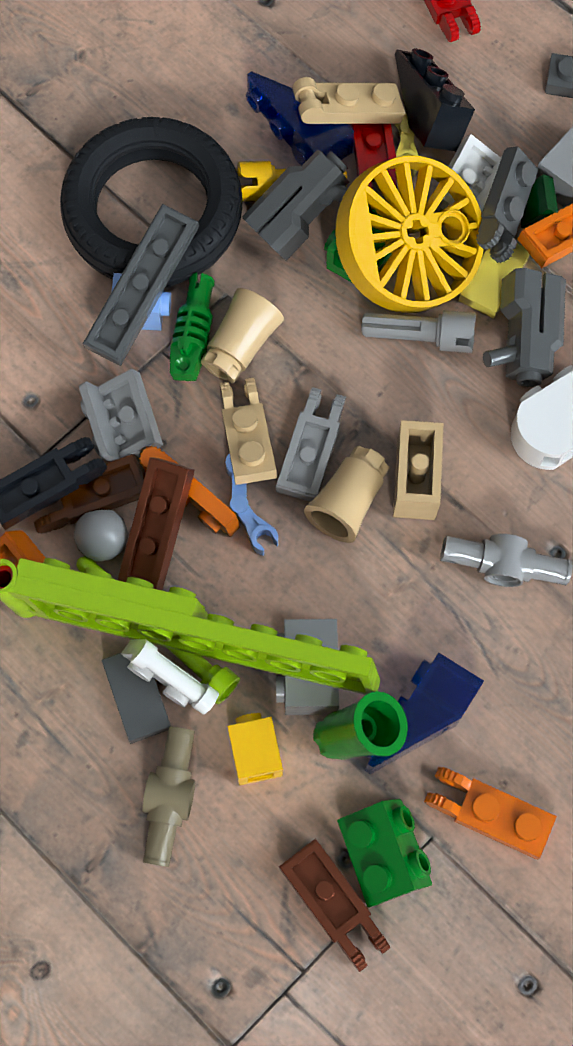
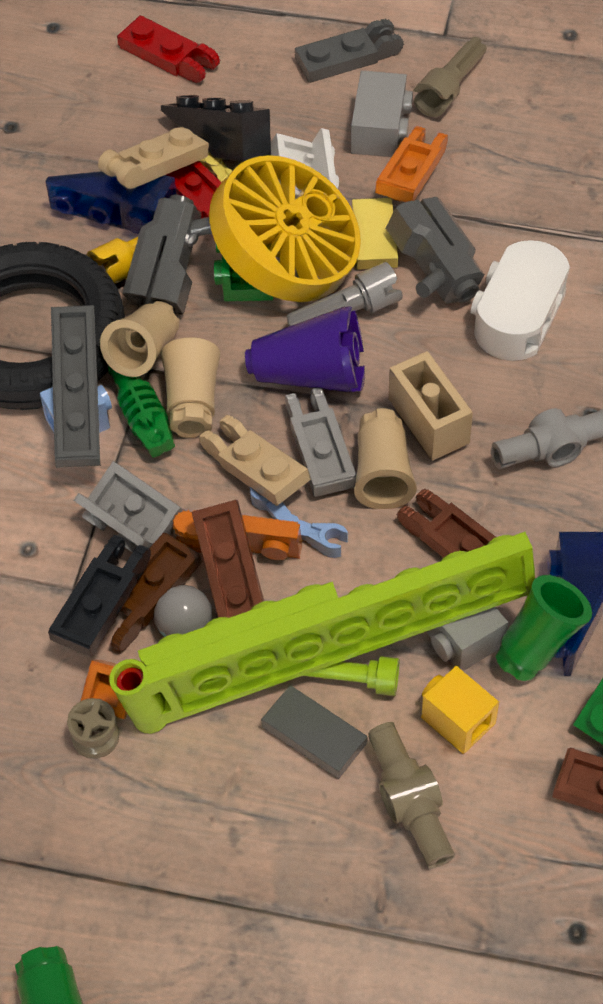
camera: 30 degrees left, 15 degrees down
(180, 686) = (339, 683): white plate -> none
(224, 268) = (137, 340): none -> tan plant
(358, 365) = (312, 353): none -> dark purple cone
(363, 603) = (450, 528): none -> copper hinge
(506, 204) = (348, 168): dark grey hinge -> none
(541, 201) = (368, 158): dark green tile -> none

